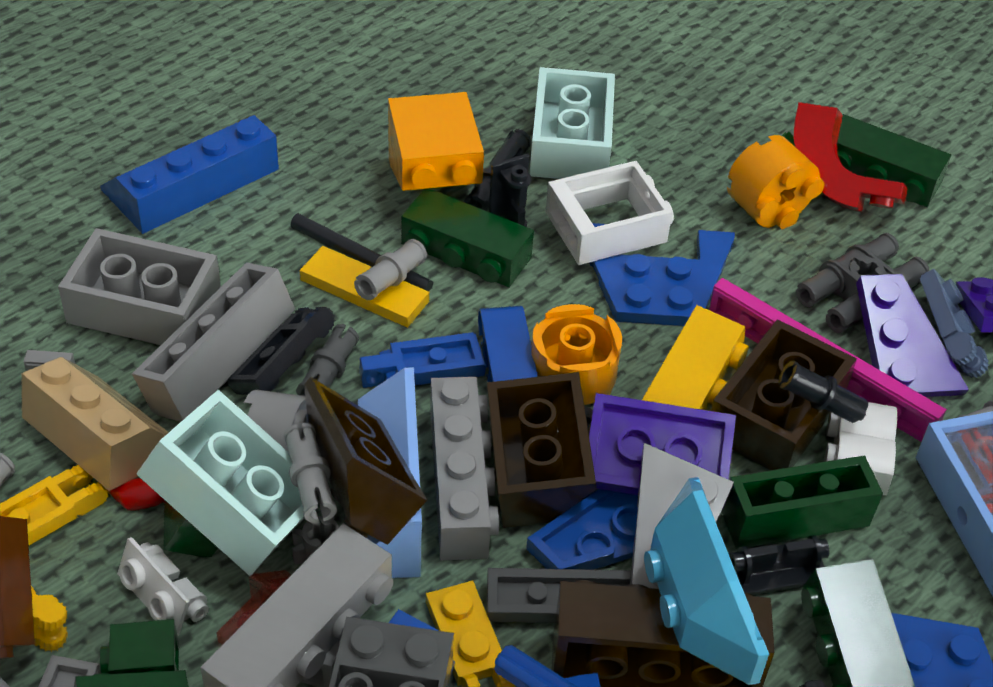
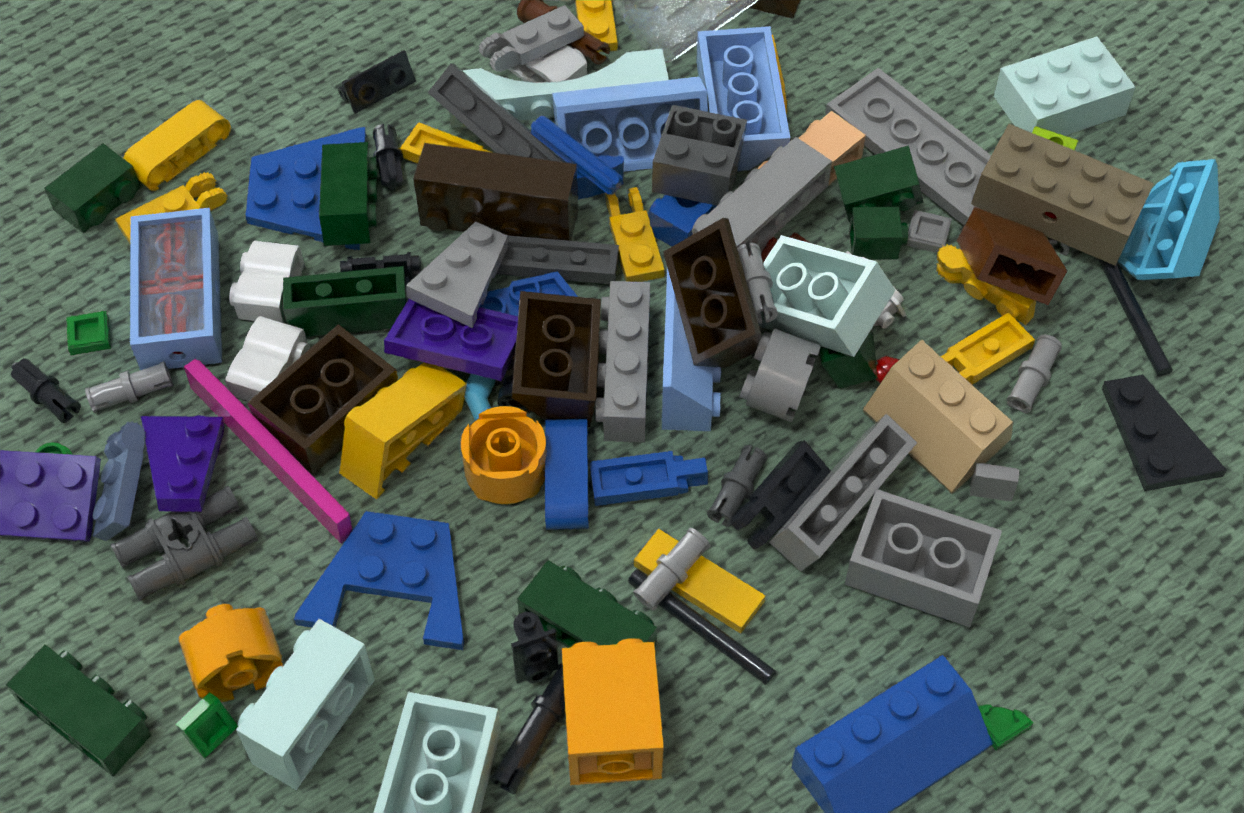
camera: 170 degrees left, 10 degrees up
(89, 197) = (1004, 724): none -> green tile
(572, 195) = (422, 590): white window -> none
(696, 148) = (305, 703): none -> light aqua brick
(702, 589) = (468, 169): medium azure wedge -> none
(817, 138) = (151, 668): red arch -> none
(822, 392) = (300, 351): black axle -> none
(909, 539) = (261, 280): none -> white brick

